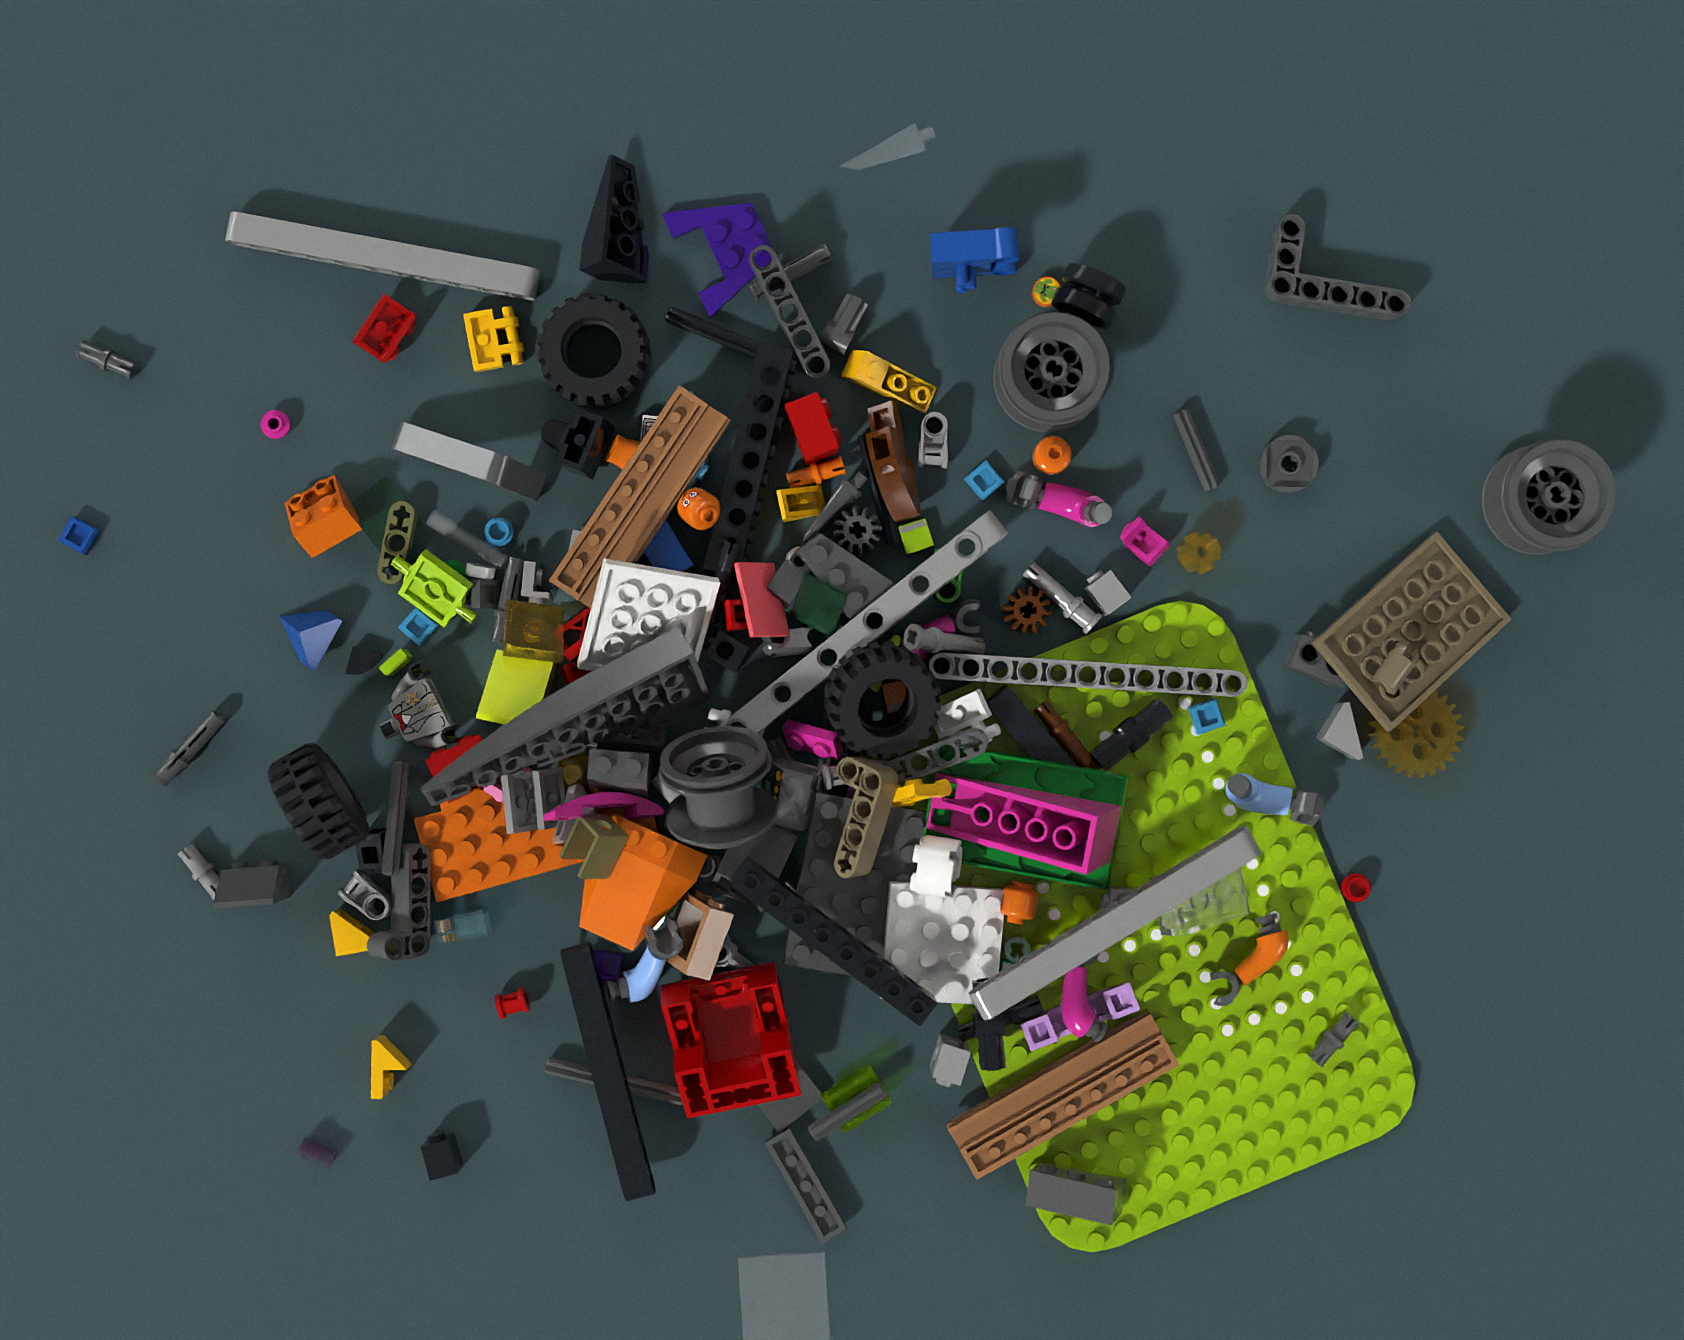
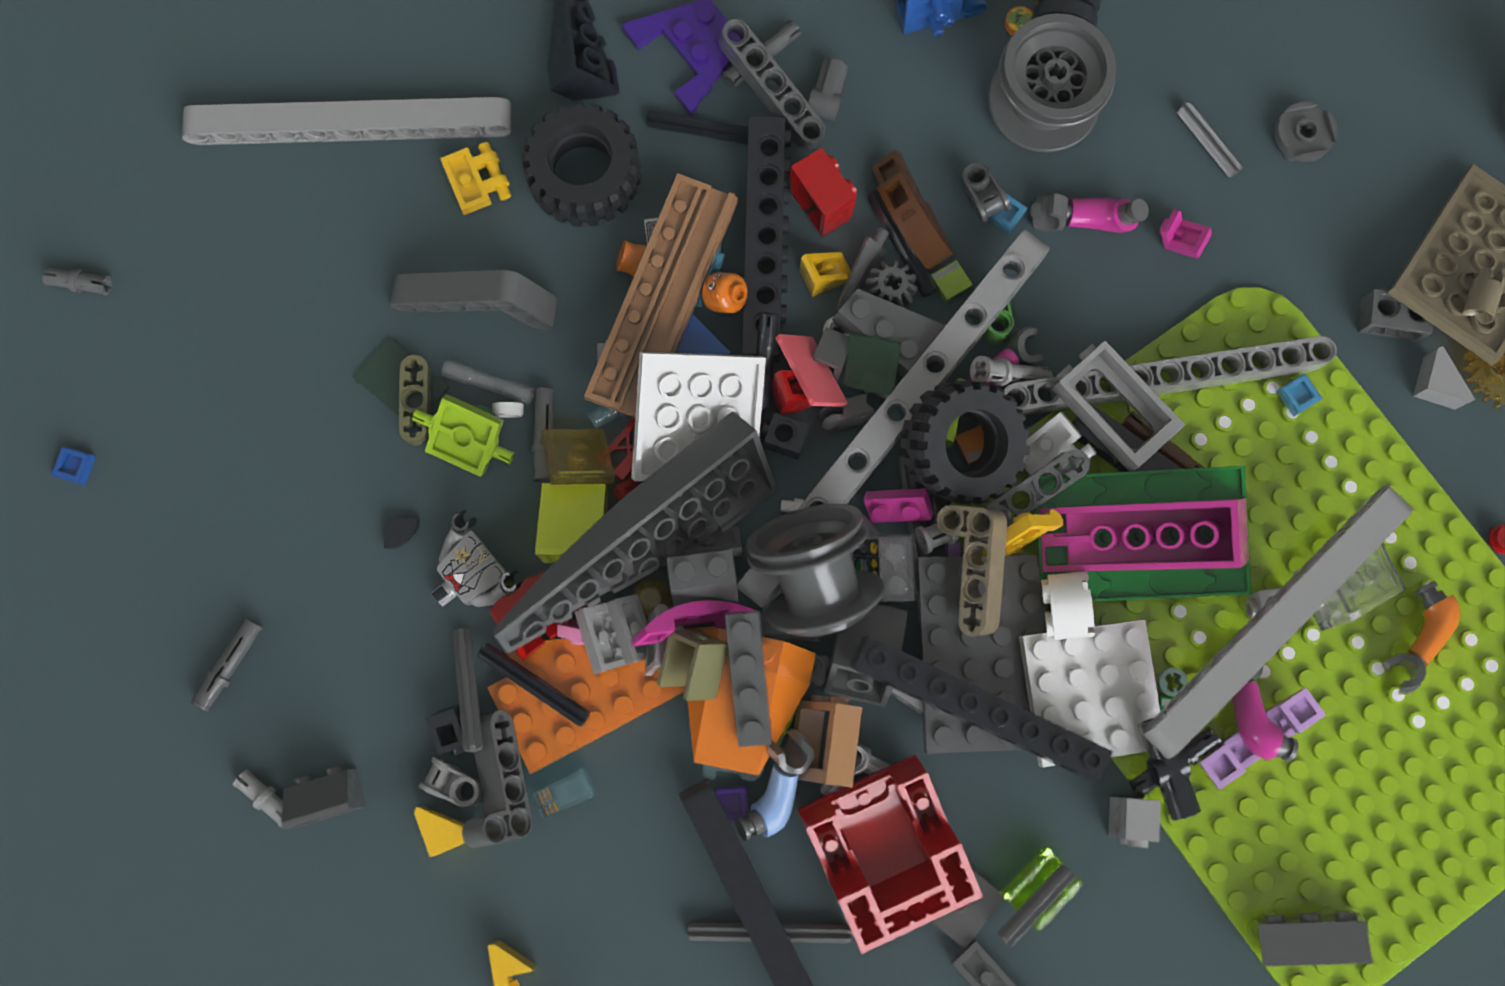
camera: 15 degrees left, 10 degrees down
(283, 428) = (270, 314): dark pink plate -> none
(311, 634) = (339, 515): blue slope -> none
(318, 801) = (378, 683): black tyre -> none
(322, 516) = (330, 389): orange slope -> none
(385, 329) = (361, 190): red bracket -> none
(396, 662) = (436, 523): lime tile -> none
(418, 626) = (453, 482): dark azure tile -> none
(456, 830) = (533, 684): none -> black axle
(484, 594) = (517, 432): dark grey tile -> none
(499, 531) = (519, 367): dark azure plate -> none
(512, 1003) = (636, 868): red bush -> none
(532, 578) = (564, 406): light grey bracket -> none
(579, 443) = (585, 257): black brick -> none
(639, 869) = (748, 678): none -> dark grey plate
(816, 473) = (836, 237): orange pin -> none
(888, 380) = (881, 133): yellow slope -> none
(933, 443) = (948, 187): light grey piece -> none
(965, 464) = (986, 195): none -> dark grey piece
(1019, 902) = (1162, 629): orange head -> none
(1032, 618) = (1089, 318): reddish brown gear -> none
(1052, 455) = (1069, 170): orange head -> none
(1061, 1094) = (1263, 832): medium nougat plate -> none
(1066, 723) = (1132, 389): none -> light grey piece
(1073, 607) = (1130, 315): light grey pin -> none
(1106, 591) = (1161, 292): light grey brick -> none
(1131, 734) = (1230, 427): black piece -> none
(1188, 555) = (1243, 233): clear yellow brick -> none
(1273, 799) = (1377, 463): piece -> none

